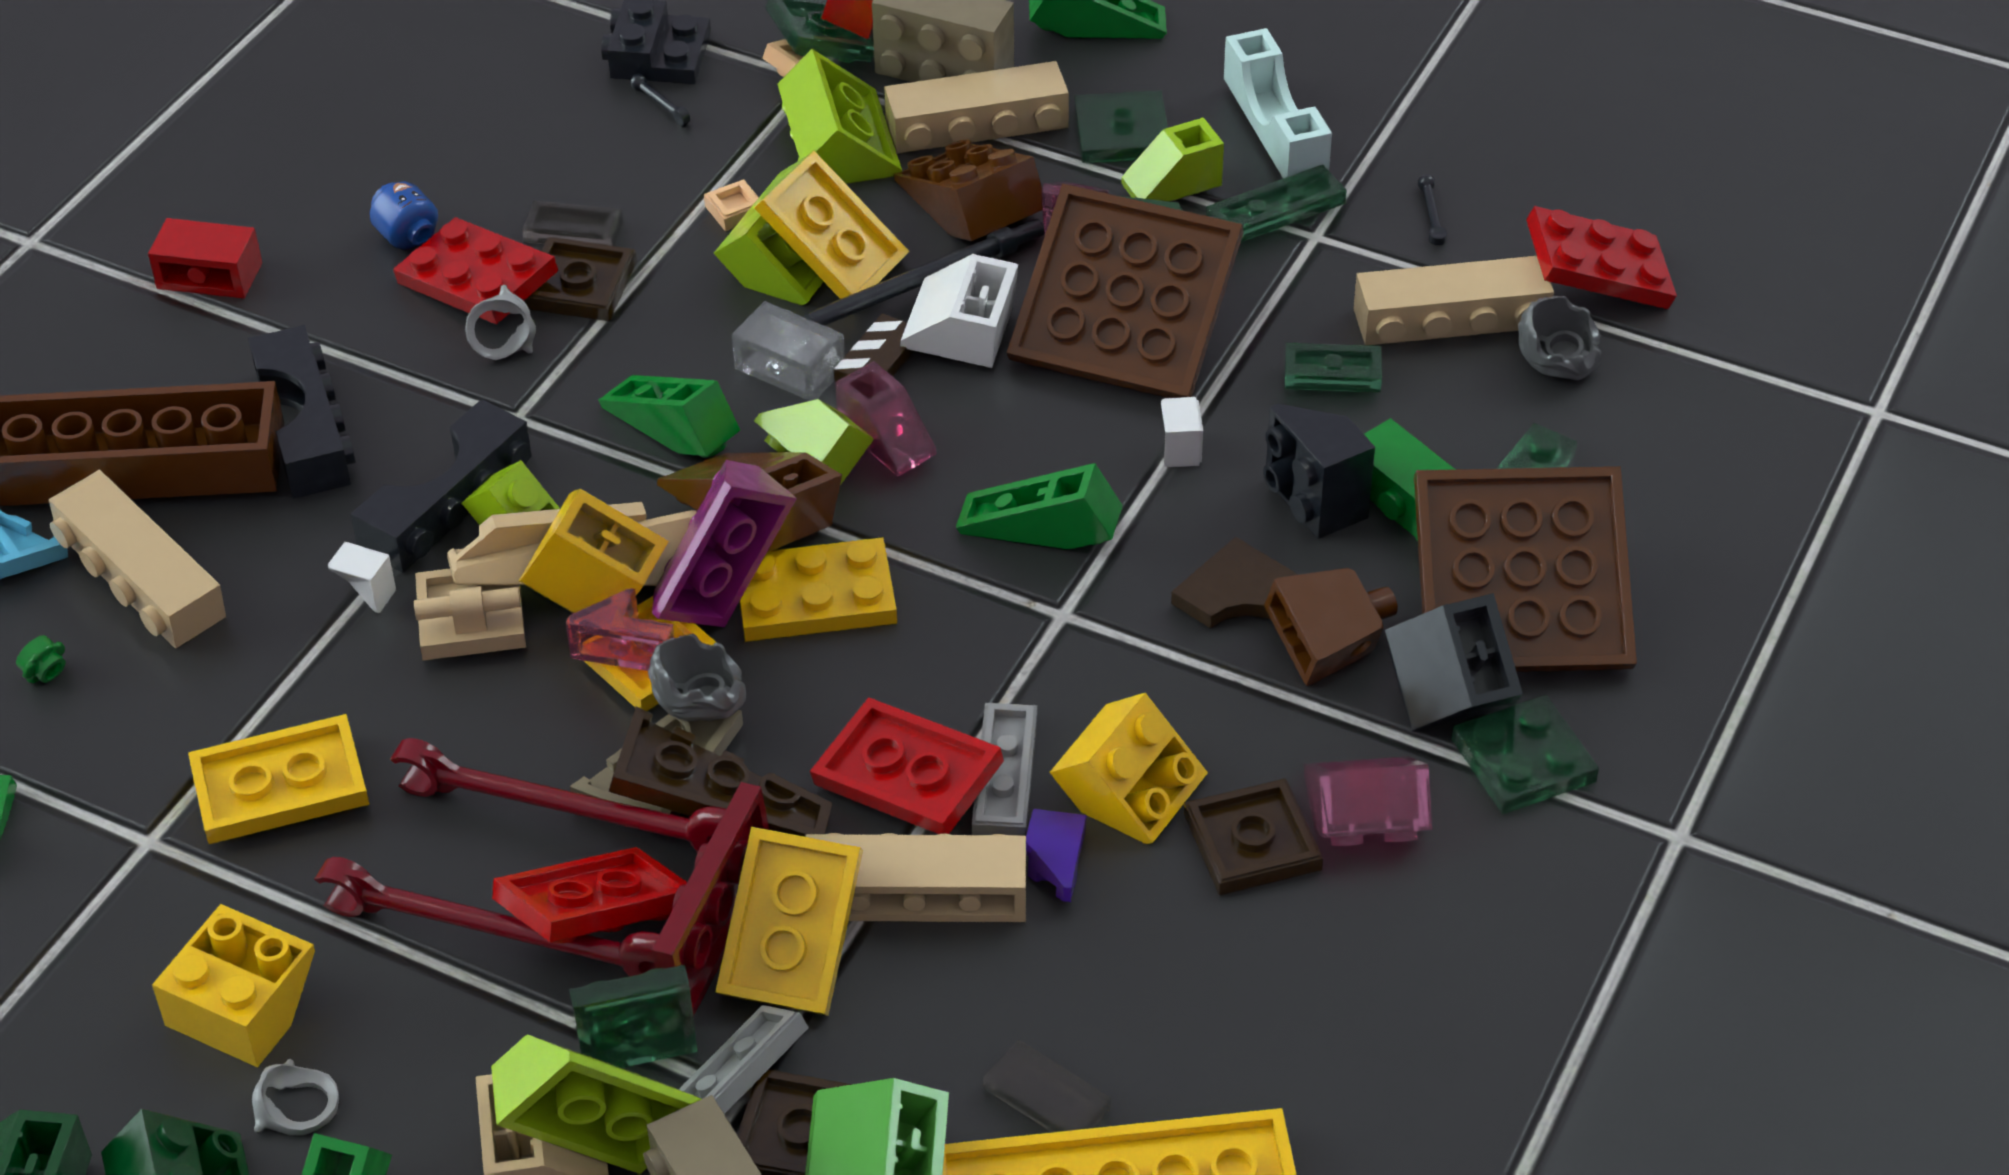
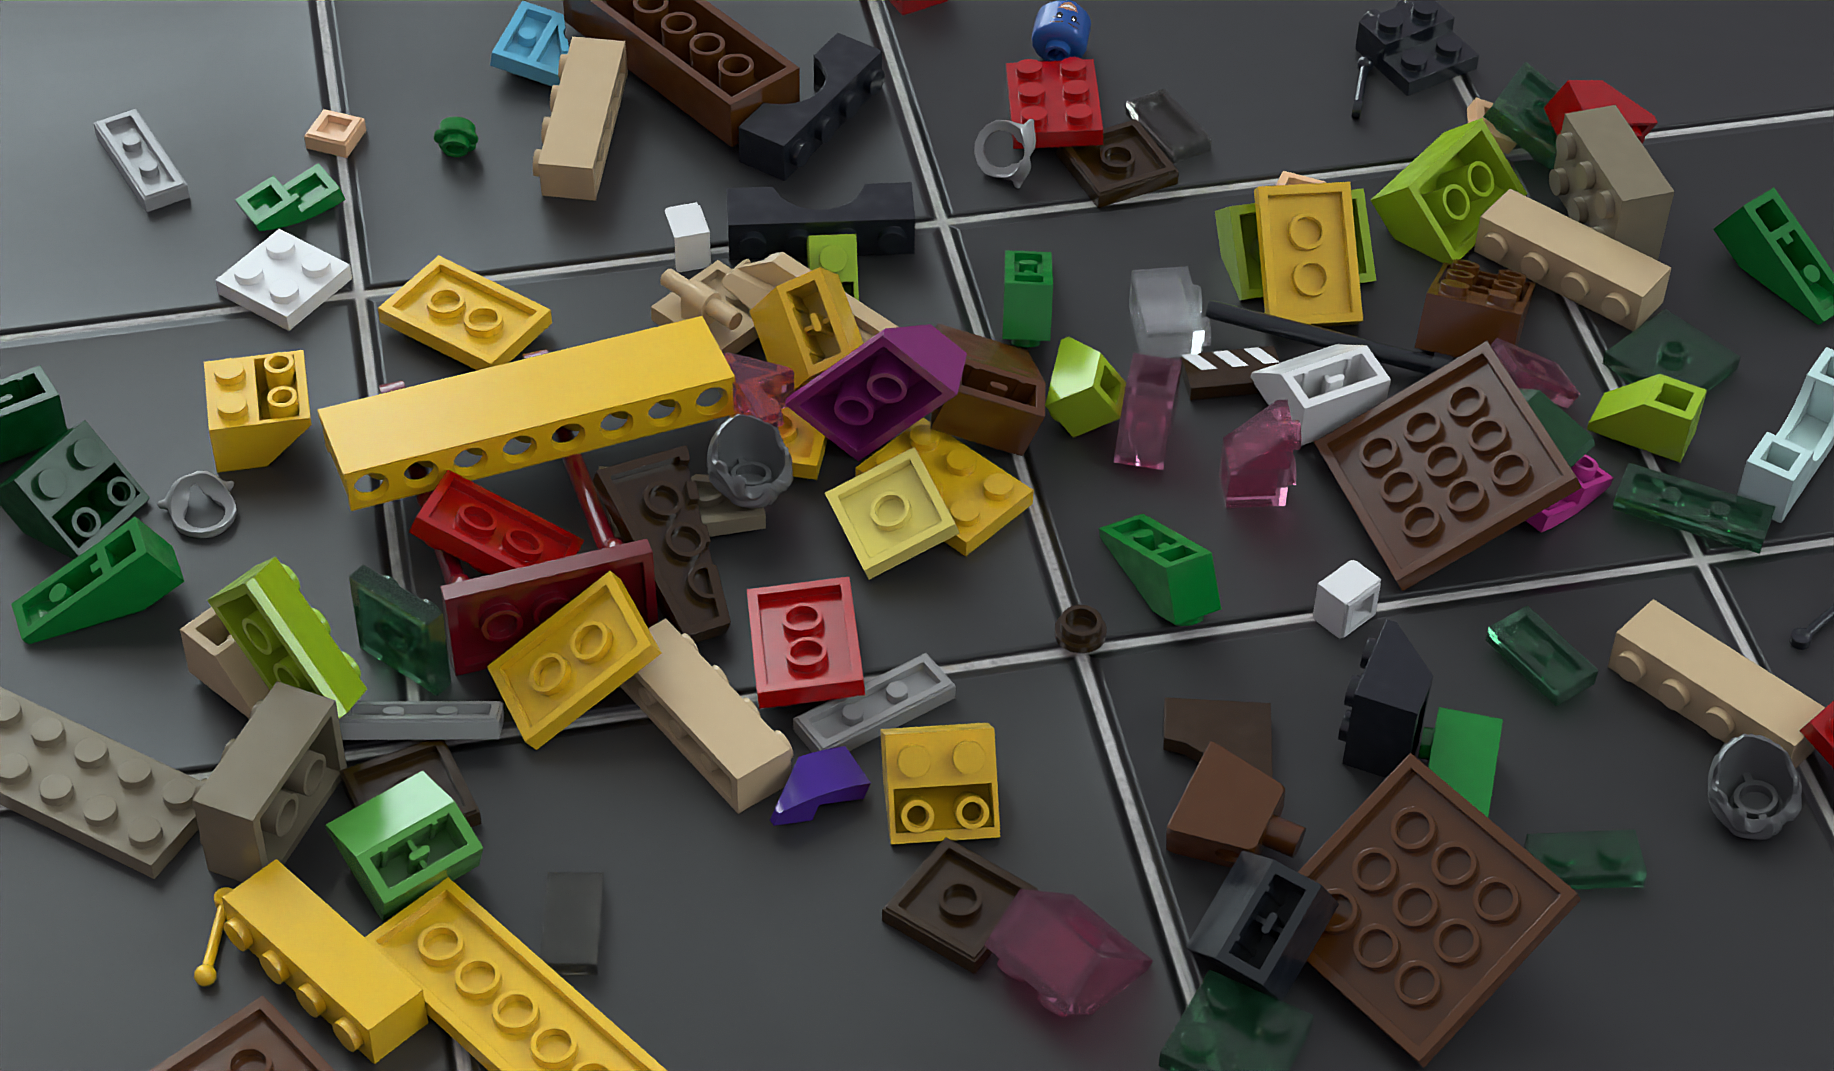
camera: 50 degrees right, 0 degrees up
(71, 884) = (284, 279): none -> white plate
(475, 786) = (527, 403): none -> yellow tile
(828, 631) = (892, 513): none -> light yellow plate
(1004, 386) = (1259, 458): none -> clear pink slope
(1053, 598) = (1080, 629): none -> dark brown plate

